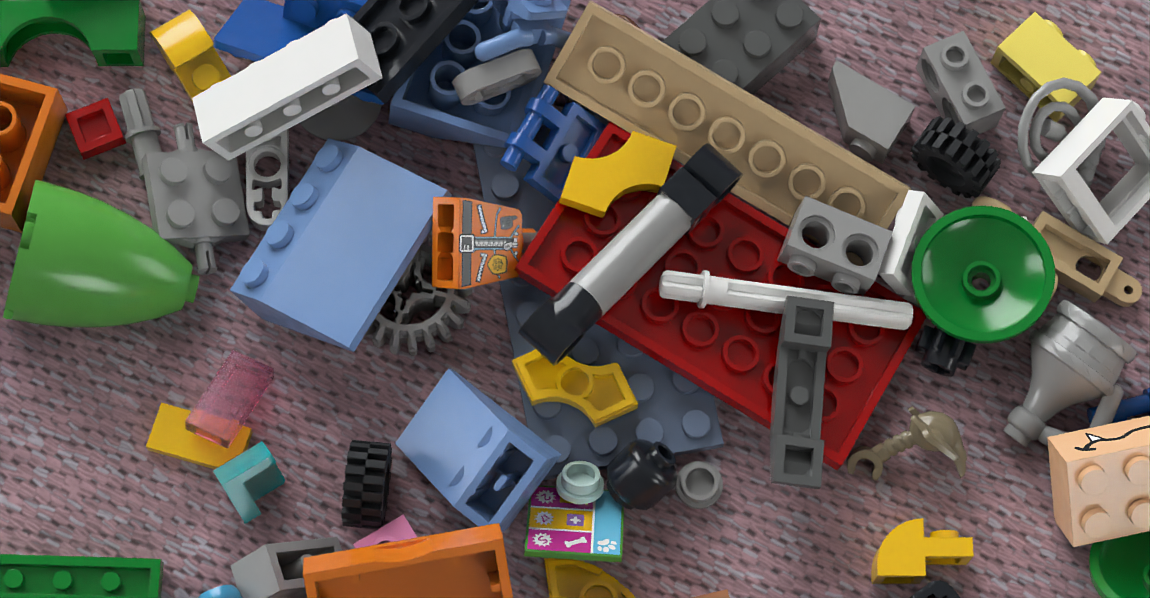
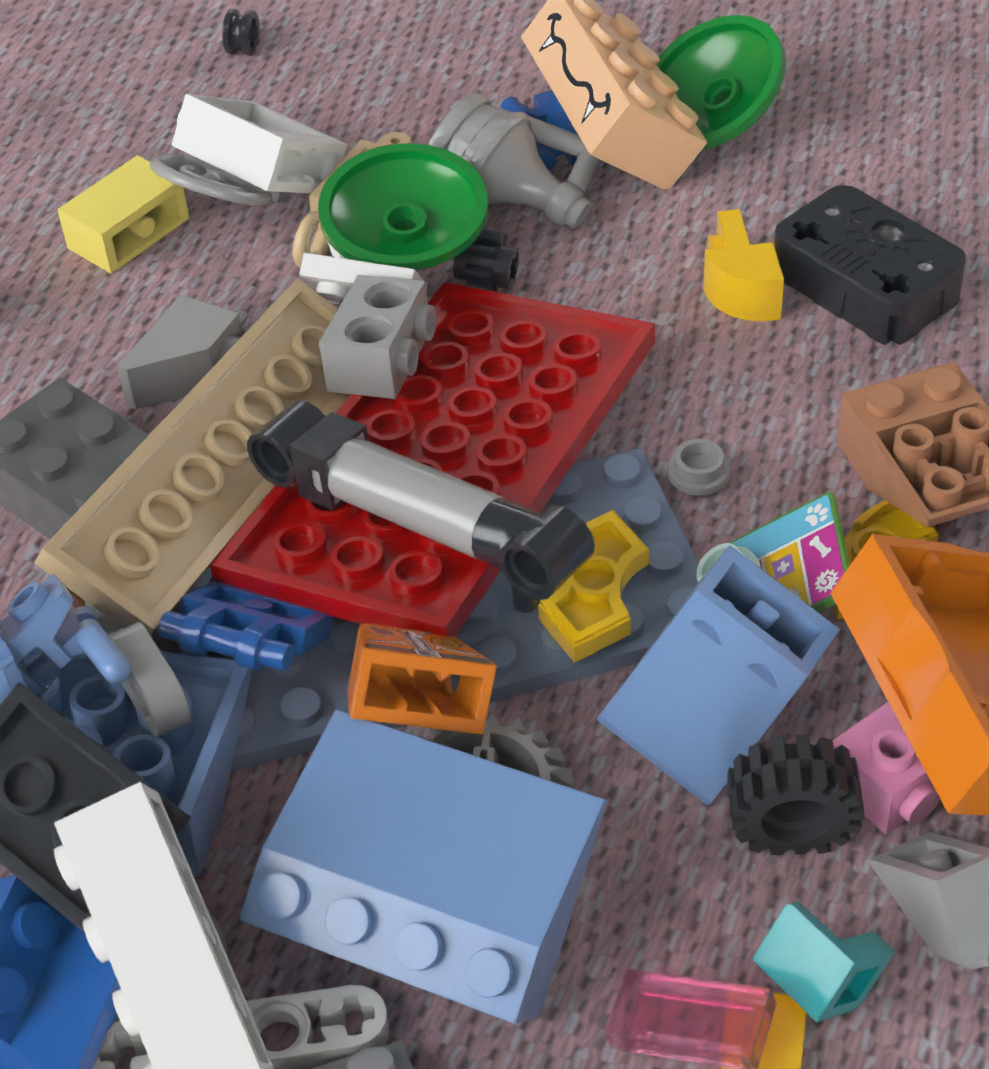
camera: 90 degrees left, 25 degrees down
(600, 181) = (304, 549): yellow tile -> none
(641, 474) = (704, 505): black head -> none
(771, 298) = (453, 431): white axle -> none
(799, 392) = (579, 354): dark grey slope -> none
(928, 430) = (595, 260): dark tan piece -> none
(955, 157) = (245, 261): black tyre -> none
(960, 83) = (148, 271): light grey brick -> none

